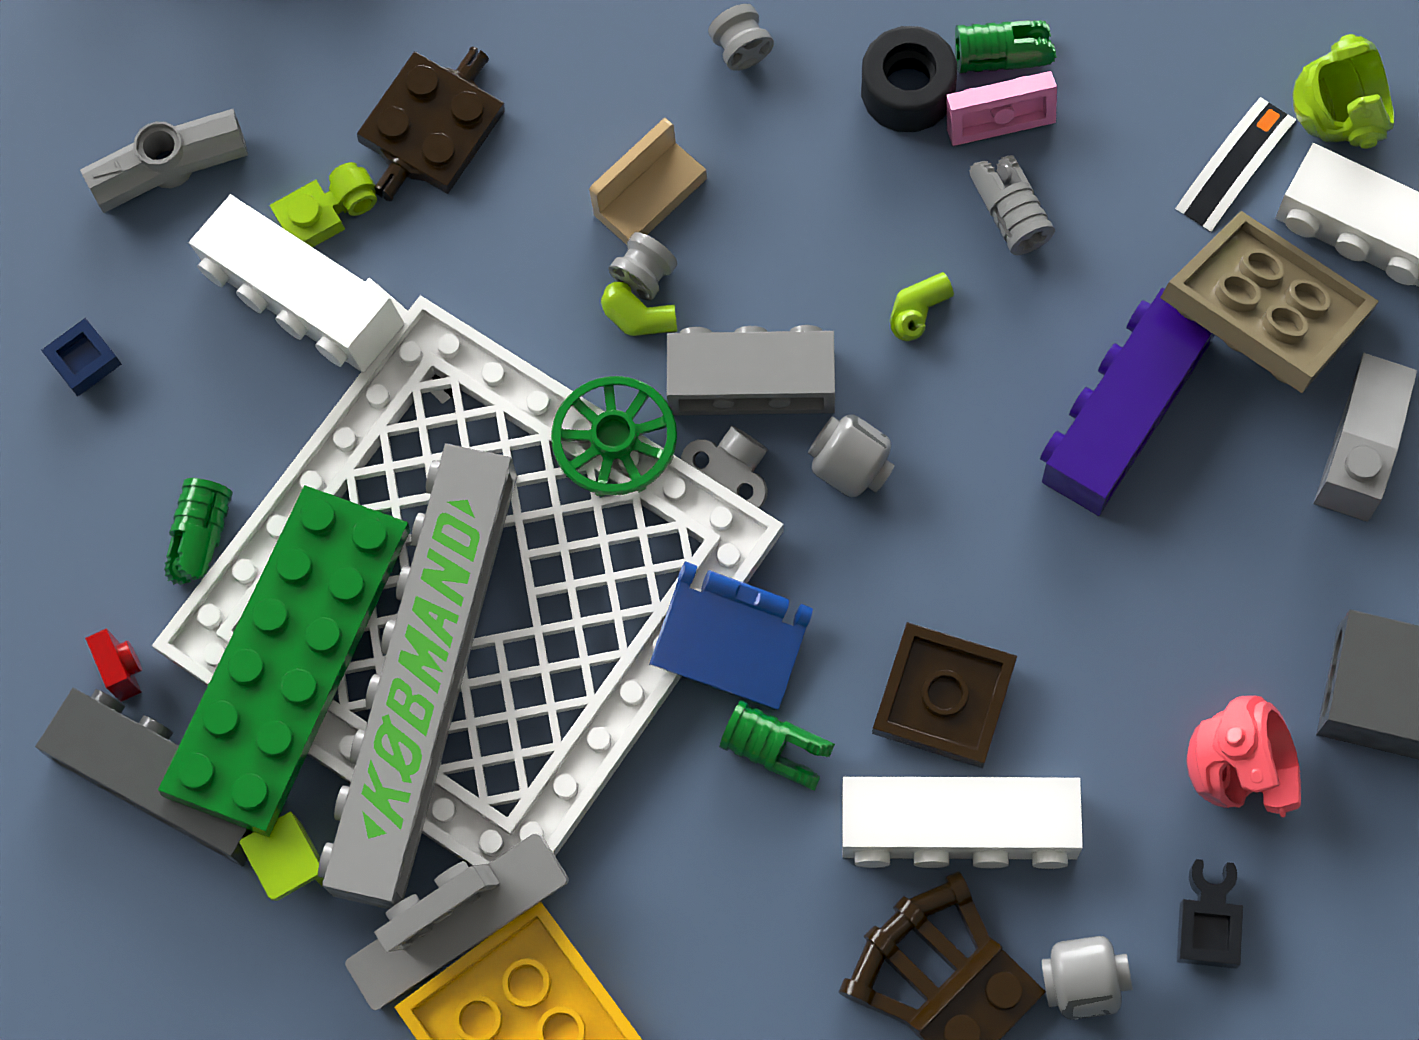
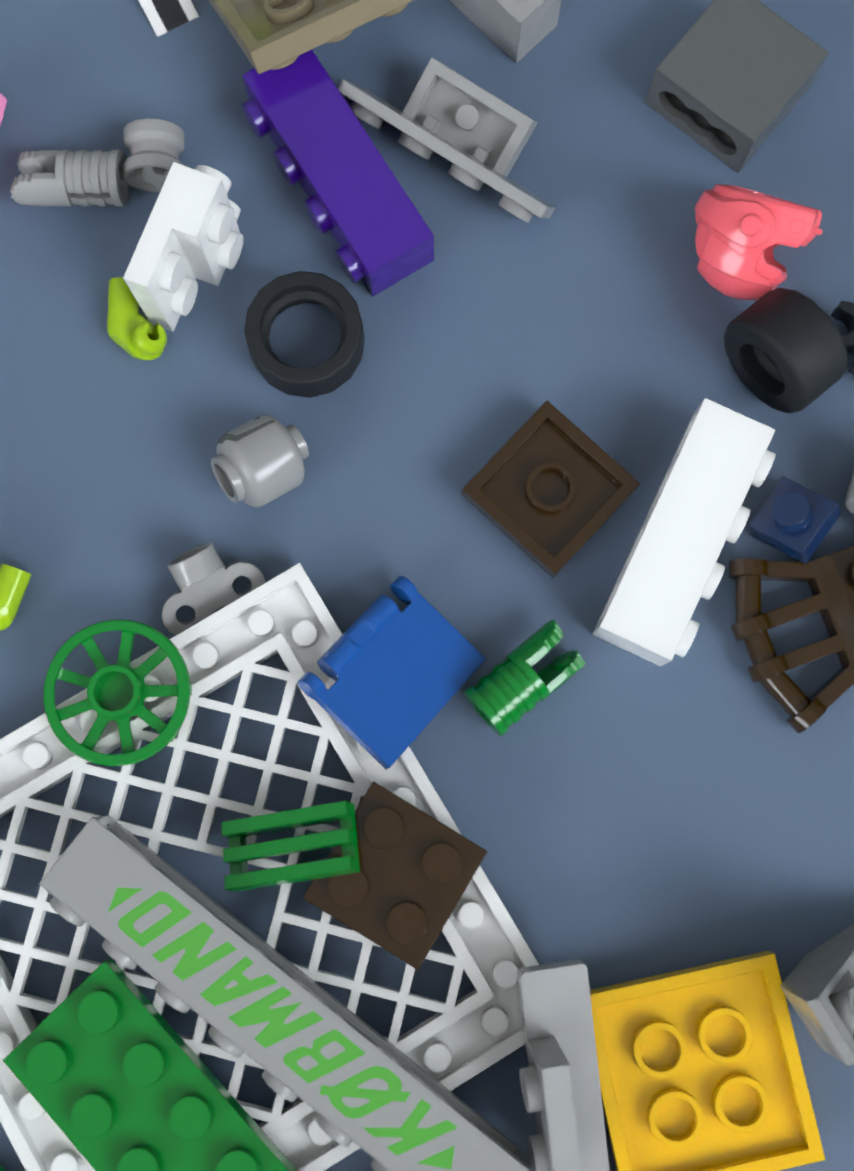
camera: 70 degrees left, 10 degrees up
(535, 584) = (240, 853): none -> green tile
(570, 709) = (406, 880): none -> dark brown plate
(751, 371) = (117, 517): light grey brick -> none
(975, 401) = (295, 290): none -> black tyre
(1005, 308) = (185, 239): none -> white plate
(1020, 908) = (794, 519): none -> dark blue plate
(1063, 254) = (153, 149): none -> light grey wheel
(1158, 829) = (785, 350): none -> black tyre
(1218, 482) = (463, 126): none -> light grey bracket

